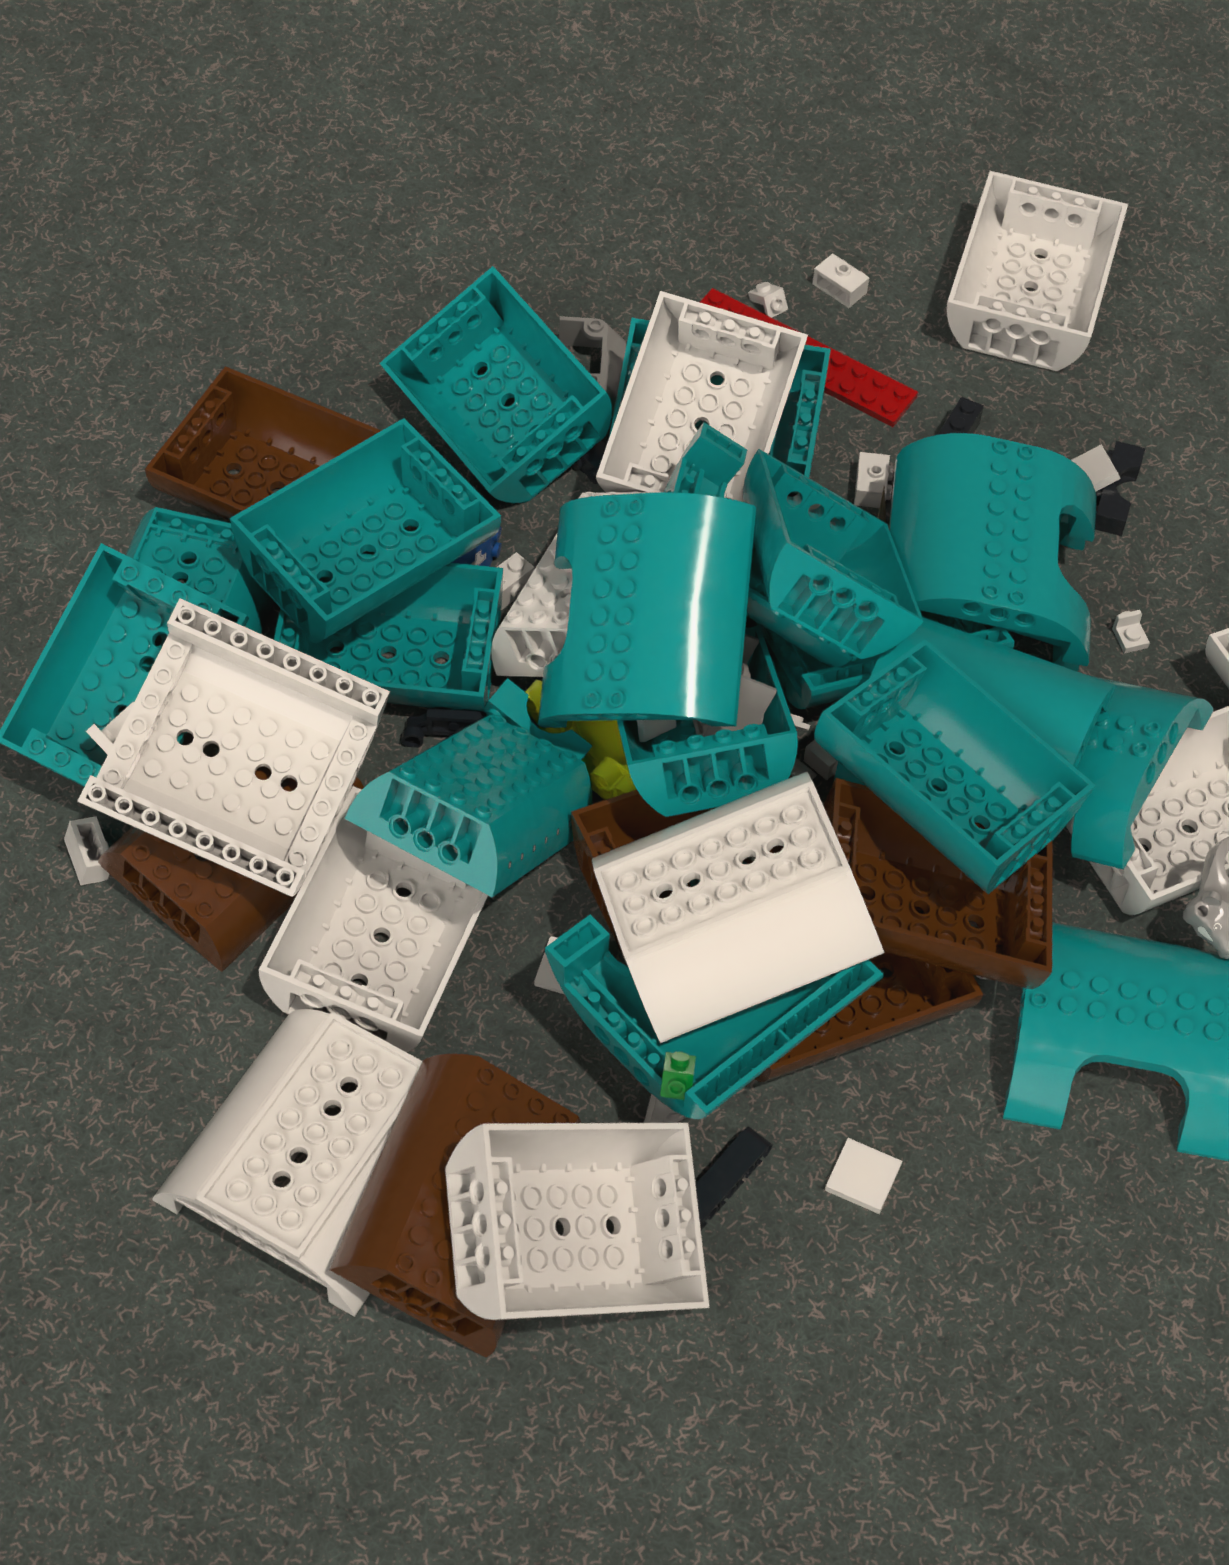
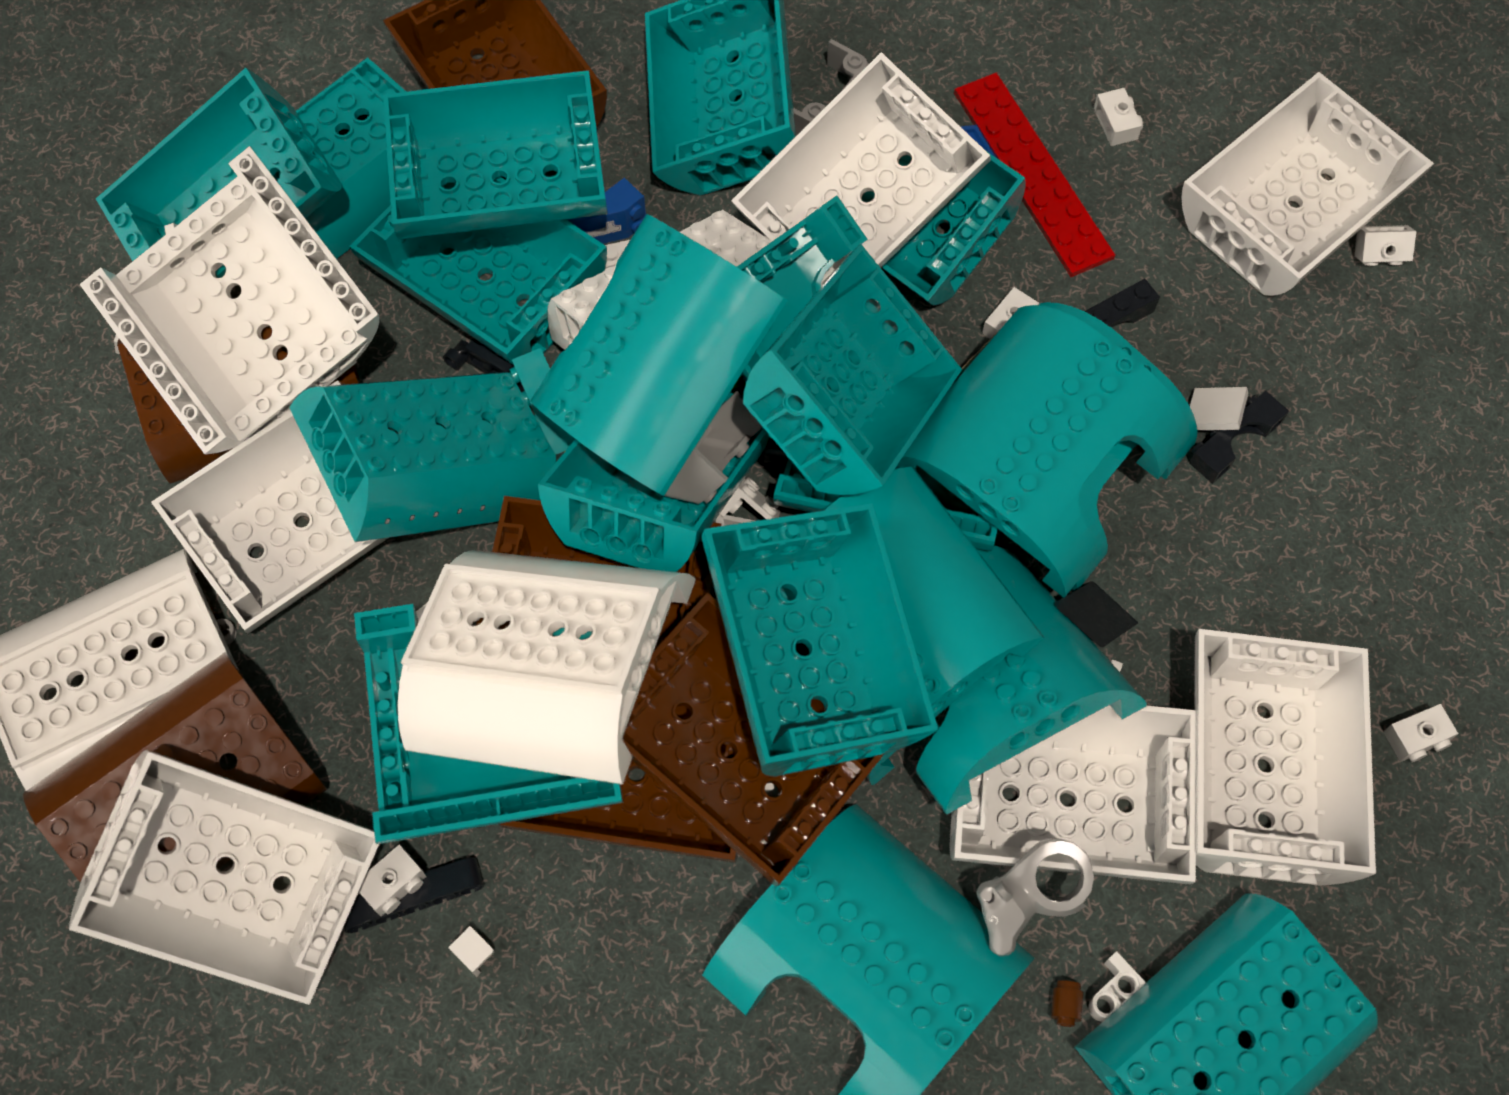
camera: 35 degrees right, 10 degrees up
(677, 1075) = (391, 788): green bracket -> none
(707, 1166) = (391, 881): none -> white brick
(771, 297) = (1041, 105): white bracket -> none
(804, 1200) = (471, 950): none -> white panel
(863, 1175) = (543, 957): white tile -> none
(1115, 671) = (1096, 614): none -> black sticker
(1126, 287) = (1385, 244): none -> white brick
(1130, 632) = (1150, 581): white bracket -> none

